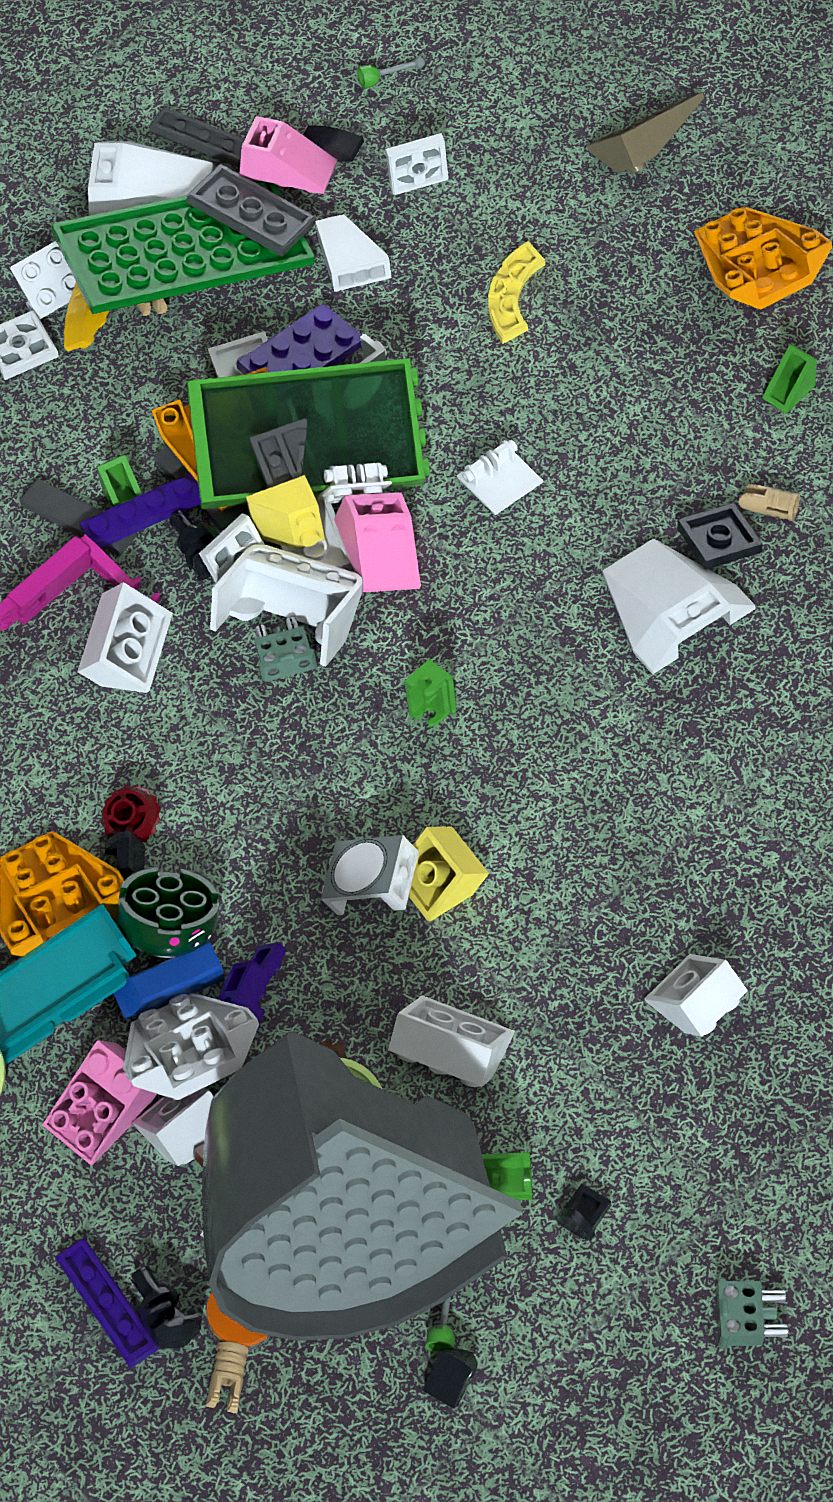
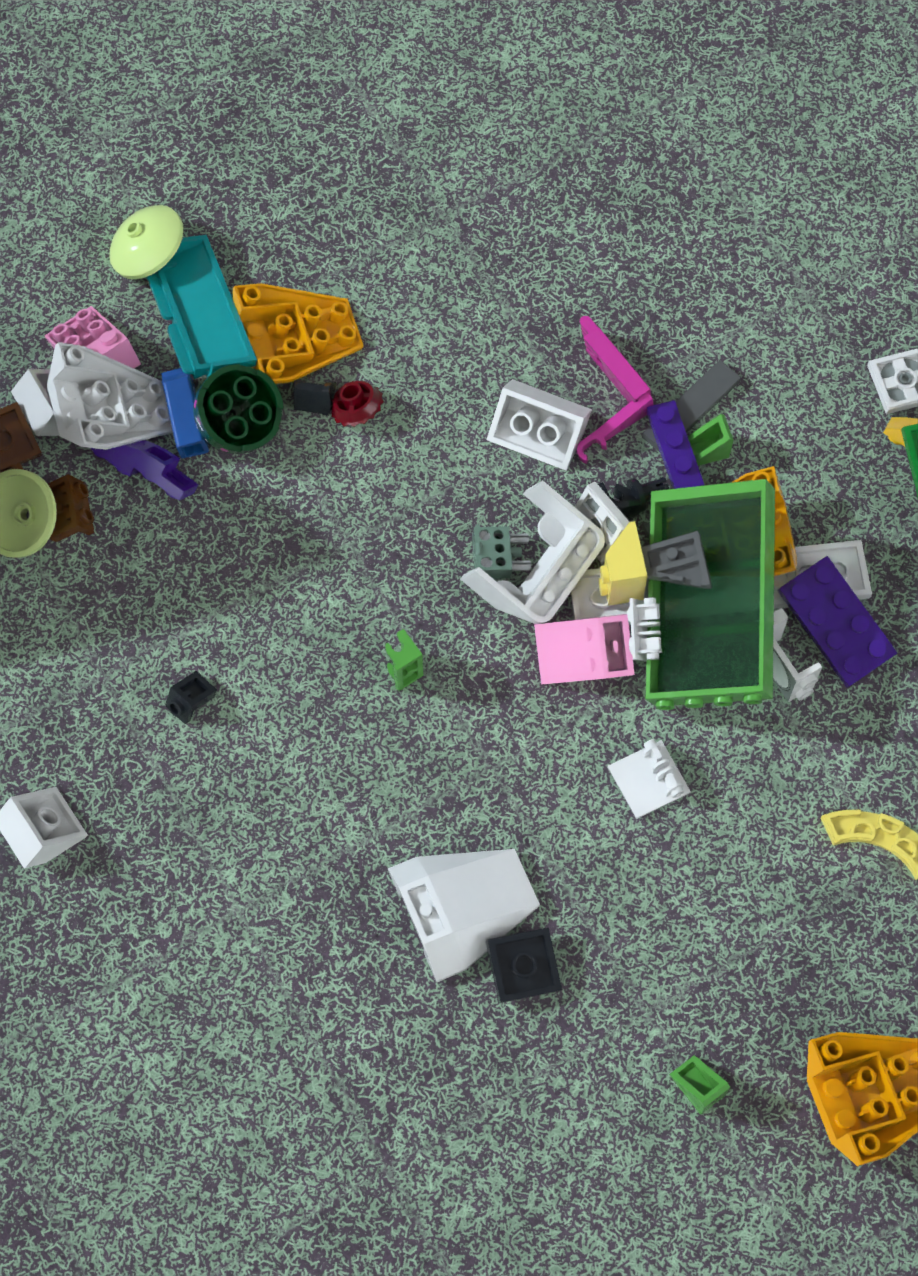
camera: 95 degrees right, 10 degrees up
(370, 870) = (228, 576): white panel -> none
(444, 872) = (226, 641): light yellow slope -> none
(449, 1041) = (61, 618): white slope -> none
(512, 890) = (189, 695): none -> black bracket
(770, 501) = (553, 1030): tan hinge -> none

